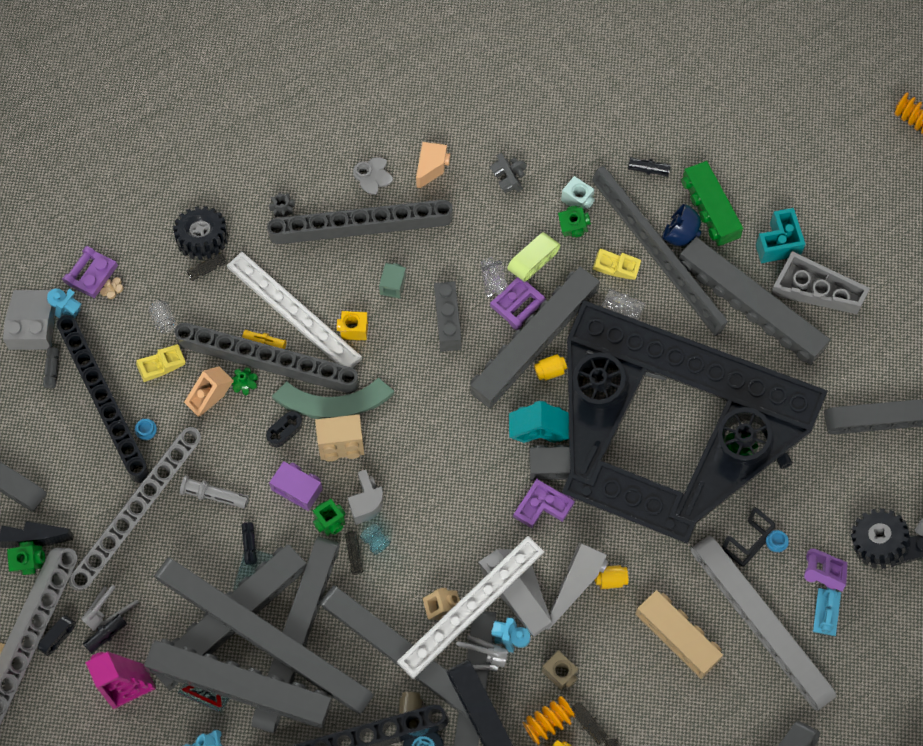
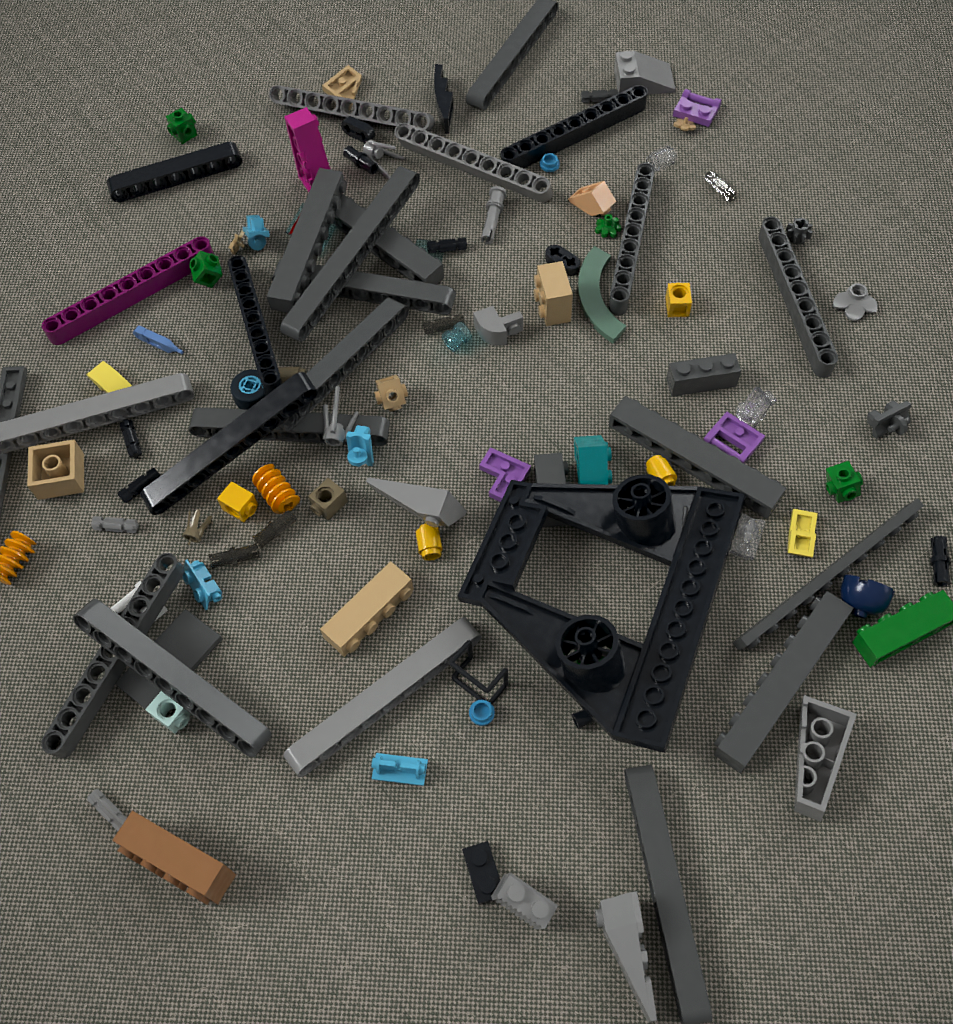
camera: 90 degrees right, 5 degrees down
(25, 558) = (421, 98): green brick -> none
(64, 303) = (658, 89): medium azure hips -> none
(163, 362) = (615, 166): light yellow slope -> none
(204, 223) = (752, 172): black wheel -> none
(265, 339) = (648, 243): yellow pin -> none
(293, 311) = (685, 257): white tile -> none
(296, 485) = (505, 271): medium lavender brick -> none
(331, 511) = (473, 295): green brick -> none
(392, 280) = (735, 326): sand green brick -> none
(431, 163) = (881, 347): light nougat slope -> none
(470, 607) = (383, 405): white tile -> none
(523, 596) = (415, 448): light grey wedge -> none
(533, 257) = (790, 446): yellowish green beam -> none
(578, 187) = (886, 481): light aqua brick -> none
(783, 239) = (874, 713): teal brick -> none
(833, 570) = (442, 769): medium lavender plate -> none
(885, 548) = (492, 840): black wheel -> none

